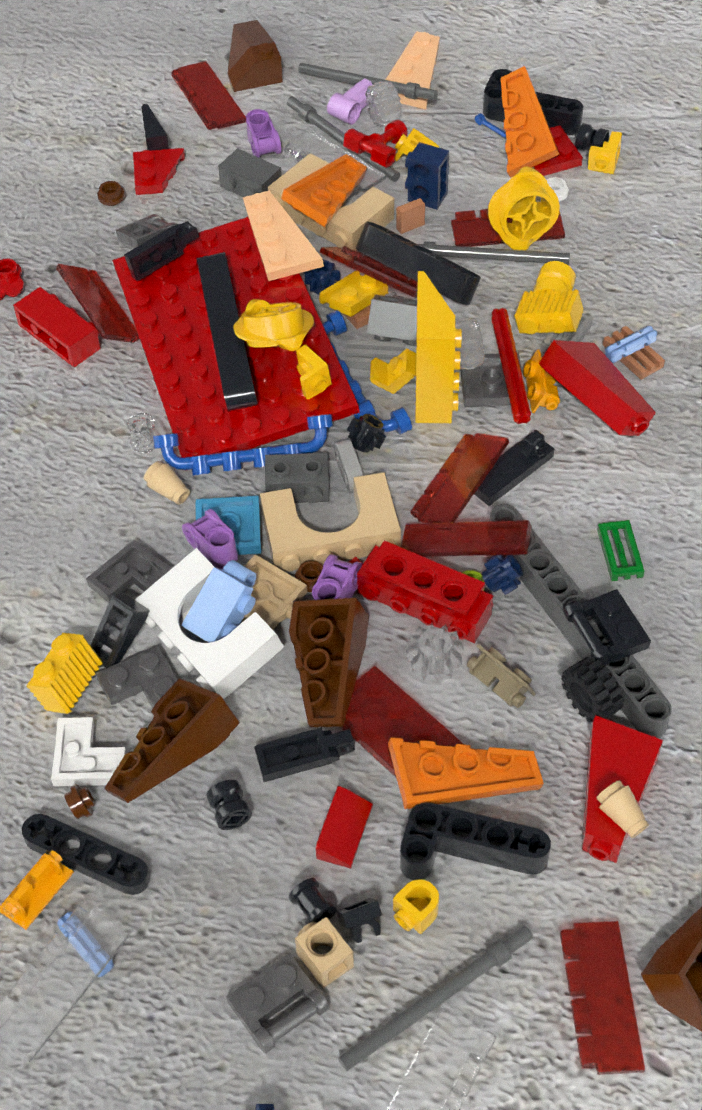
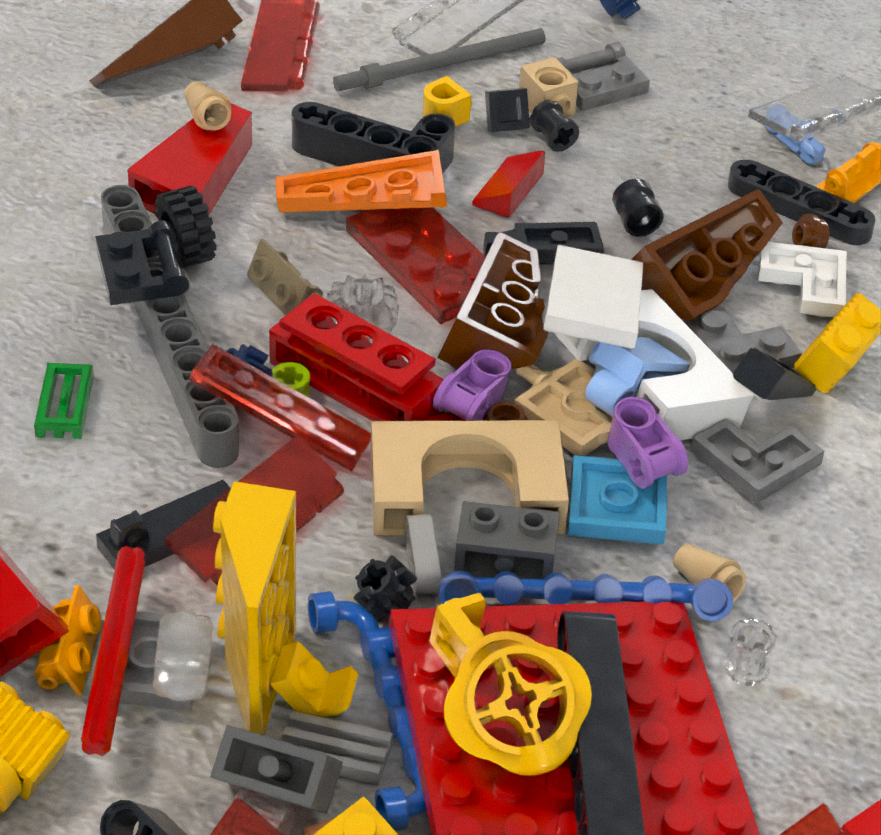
camera: 175 degrees left, 10 degrees down
(255, 634) = (594, 297): none -> white tile

